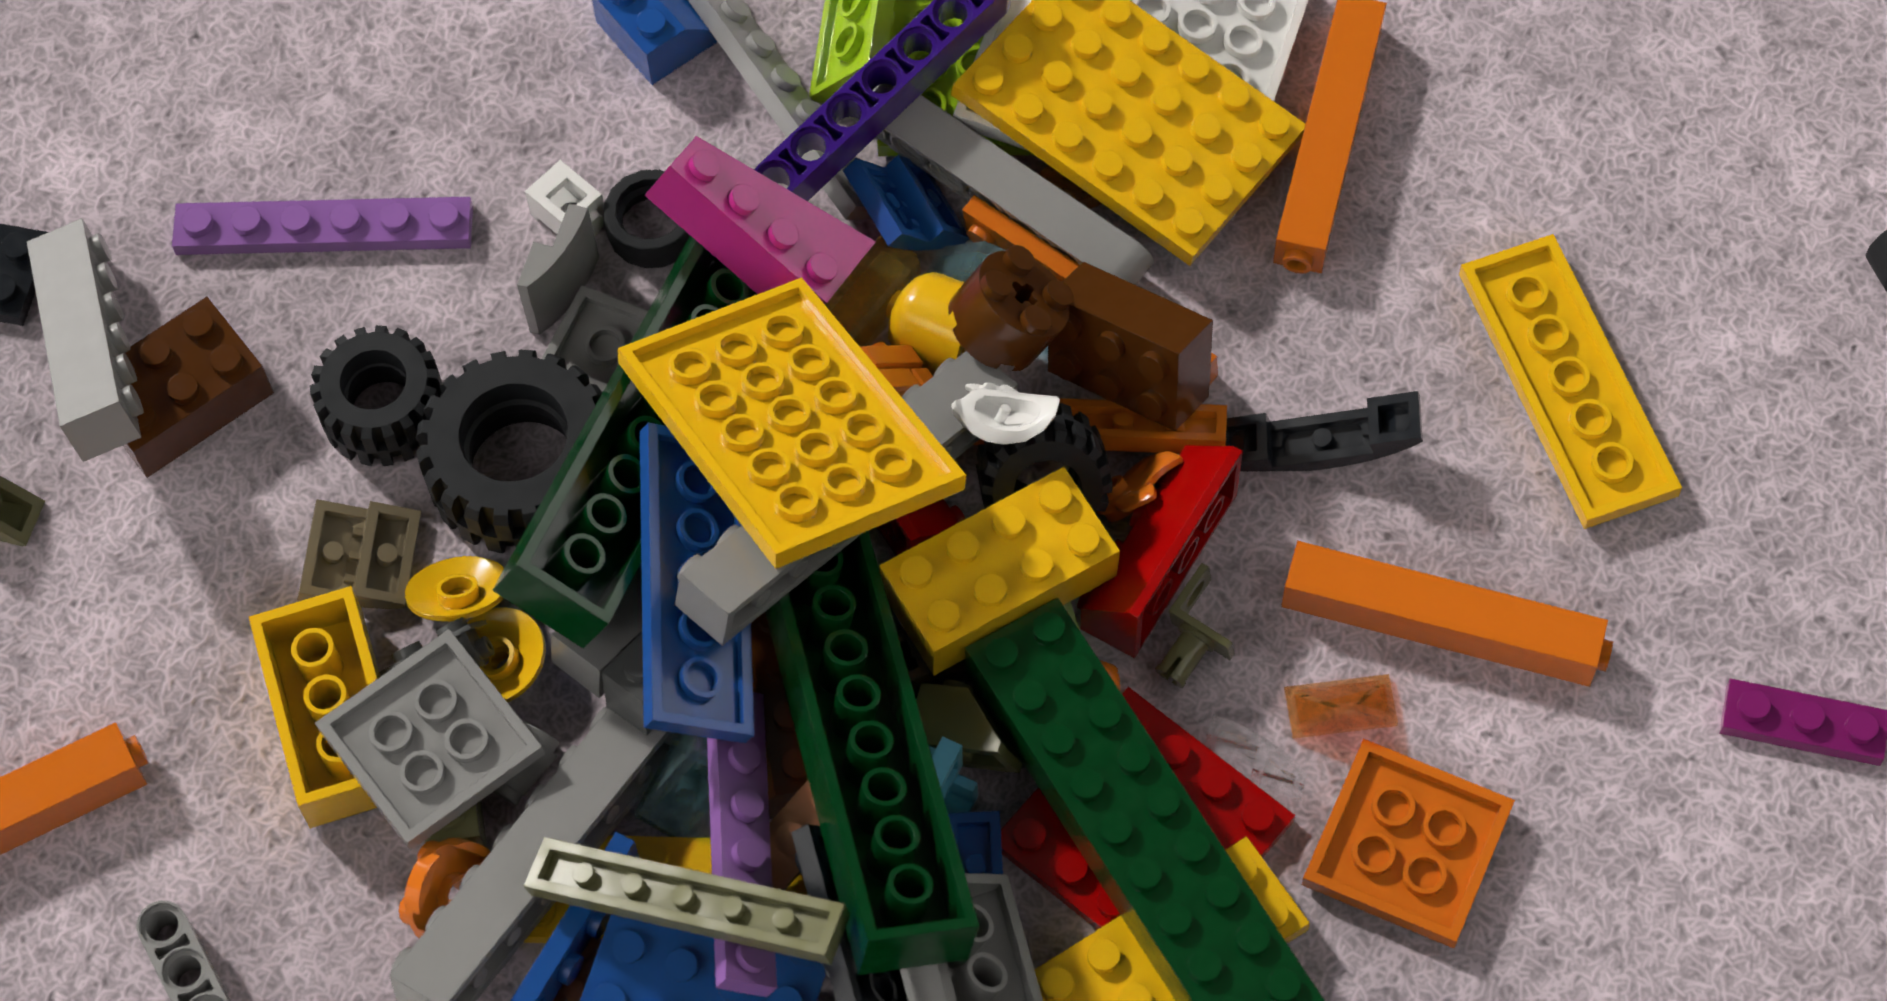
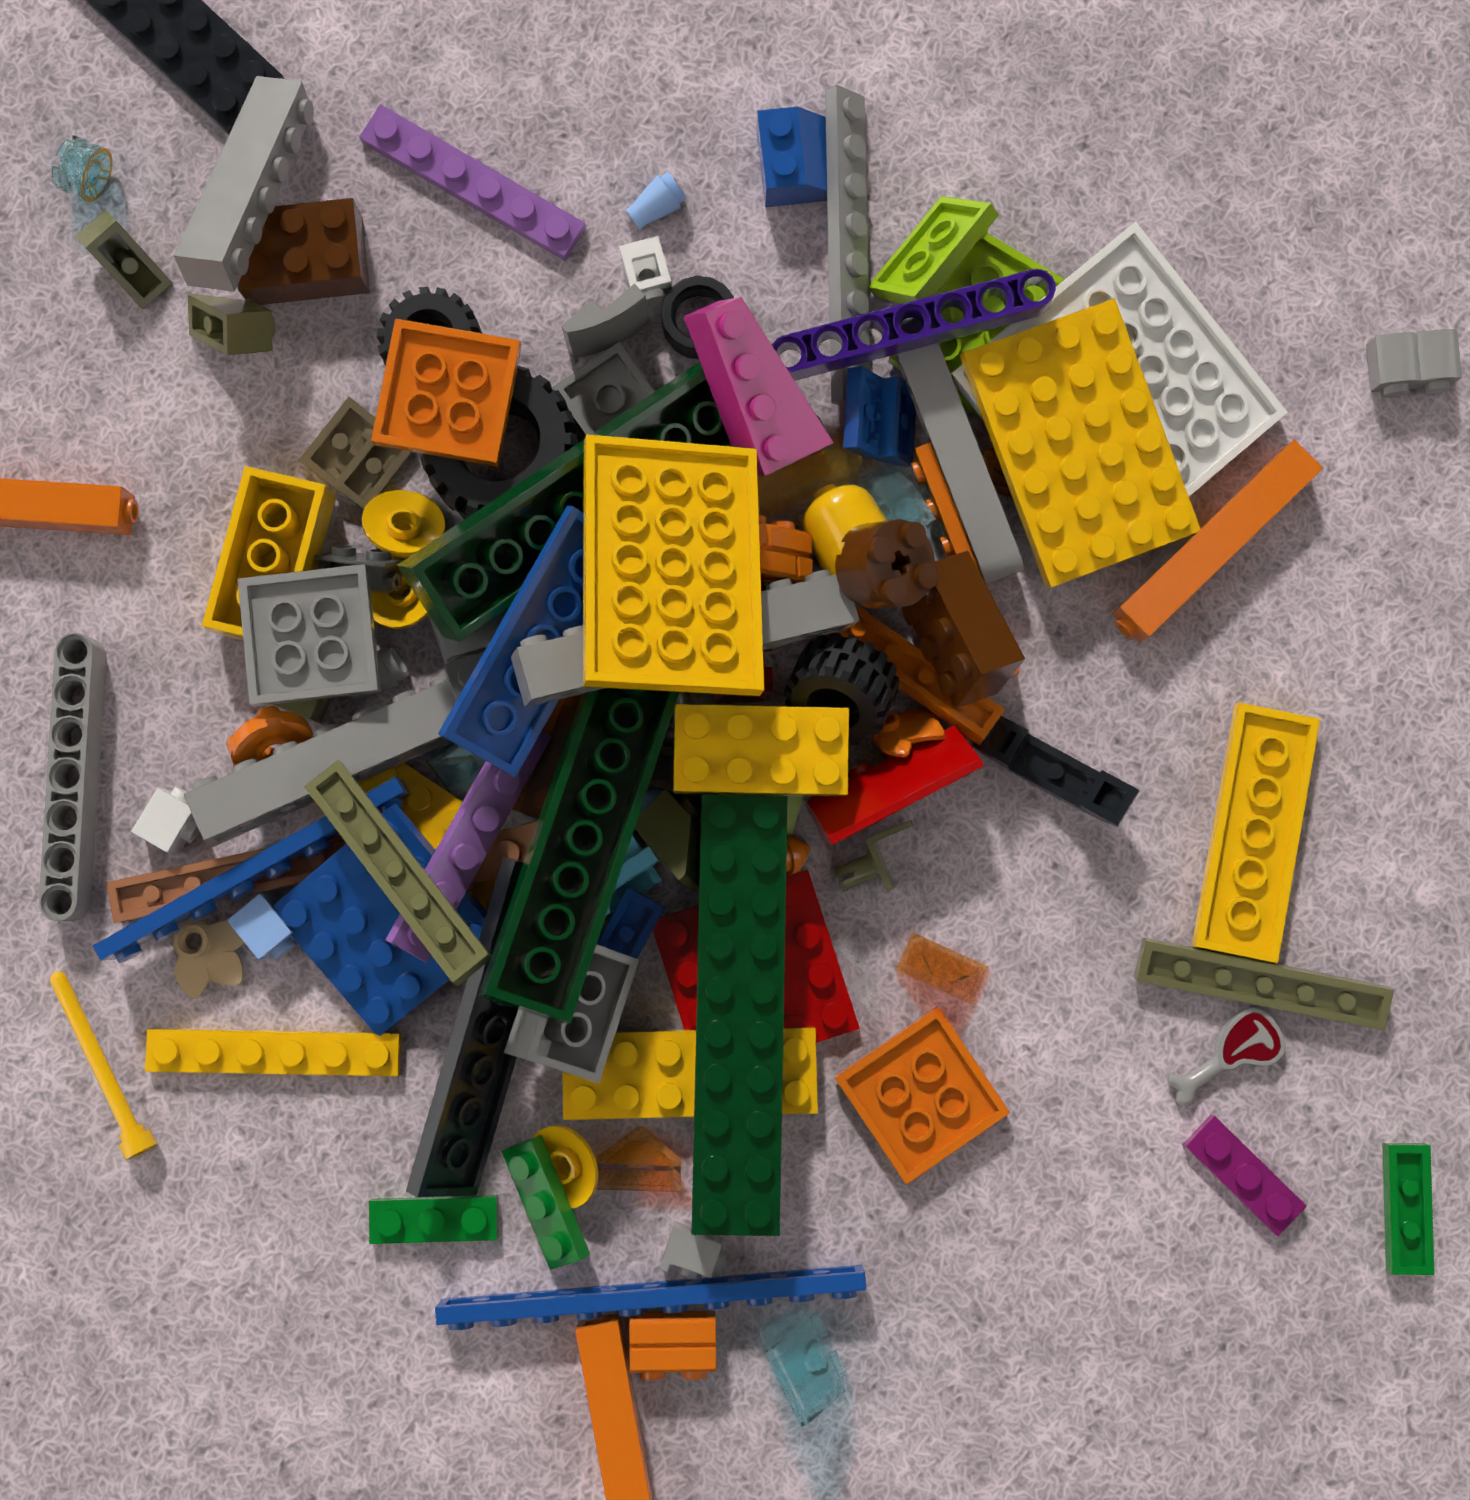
camera: 25 degrees right, 20 degrees up
(139, 498) = (231, 324): none -> olive slope
(434, 412) = (446, 392): none -> orange plate
(535, 133) = (656, 201): none -> light blue cone
(1003, 413) = (828, 647): white hat -> none
(1446, 614) = (1055, 953): orange brick -> none
(1682, 518) = (1263, 983): none -> olive plate
(1705, 586) = (1245, 1038): none -> light grey piece

